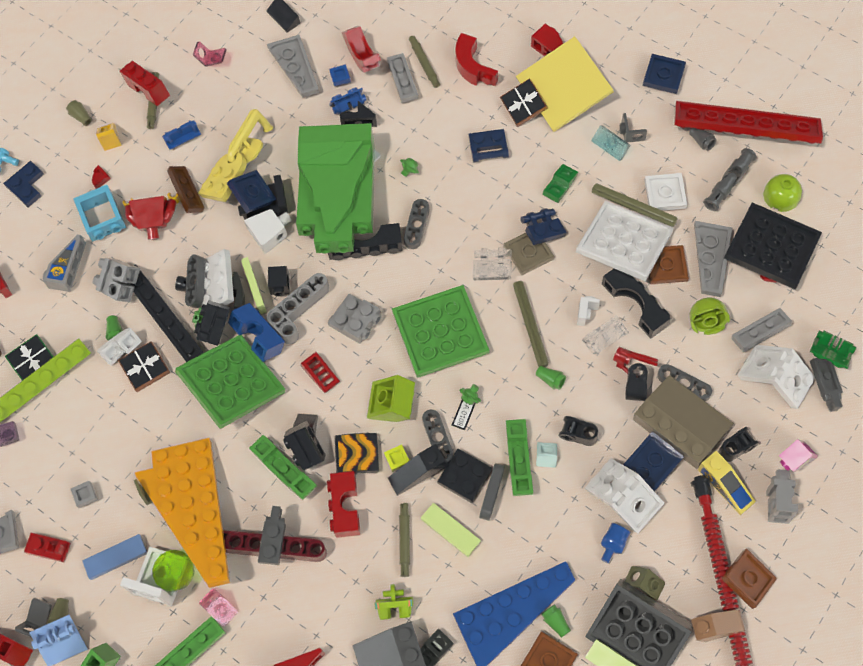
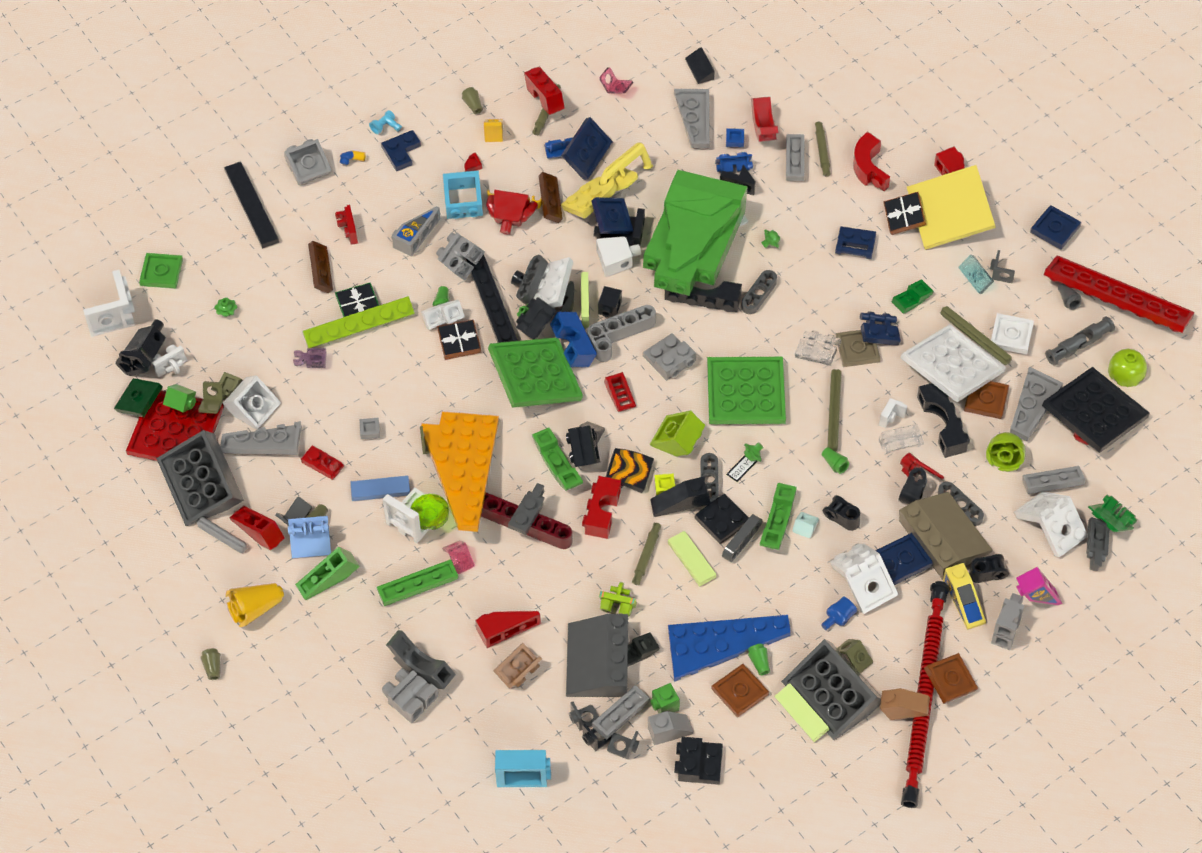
camera: 15 degrees right, 10 degrees down
(204, 129) = (587, 148): none -> dark blue plate

